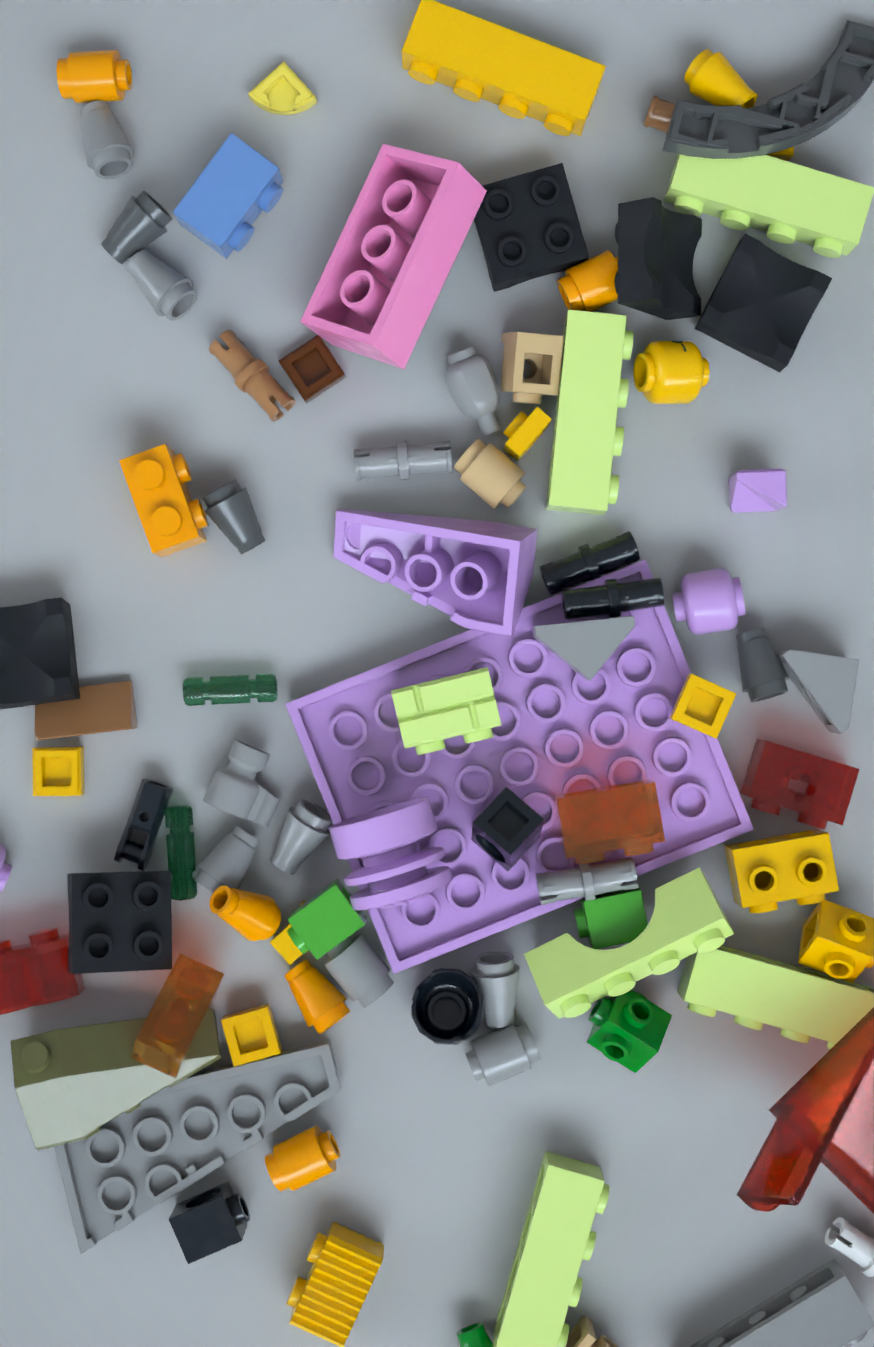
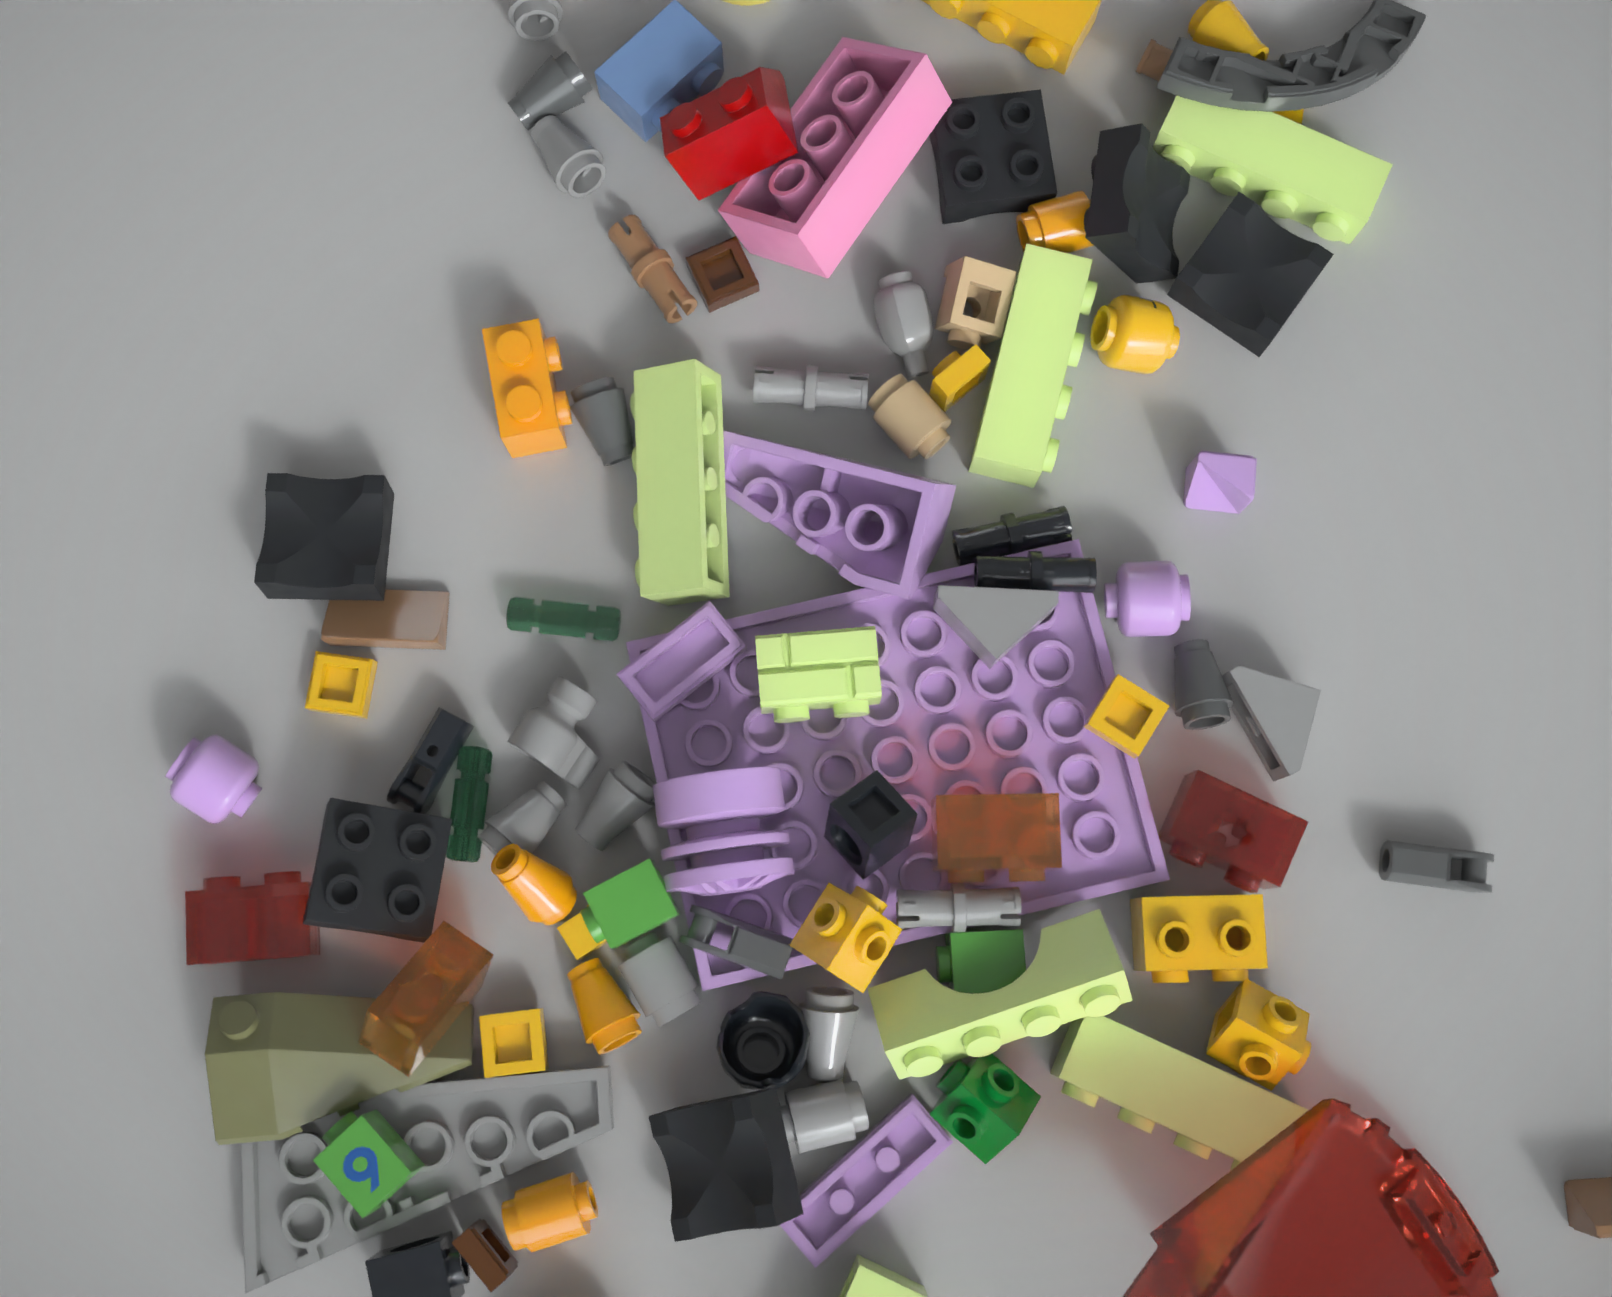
camera: 10 degrees right, 10 degrees down
(156, 1145) = (366, 1160): none -> bright green brick
(259, 1197) = (486, 1254): none -> reddish brown tile
(300, 250) = (730, 132): none -> red slope
(307, 563) = (680, 483): none -> yellowish green brick
(333, 714) = (682, 661): none -> lavender tile
(424, 936) = (748, 946): none -> dark grey bar
(434, 1104) = (727, 1165): none -> black brick
(501, 918) = (847, 935): none -> yellow brick
(541, 1096) = (866, 1179): none -> lavender tile

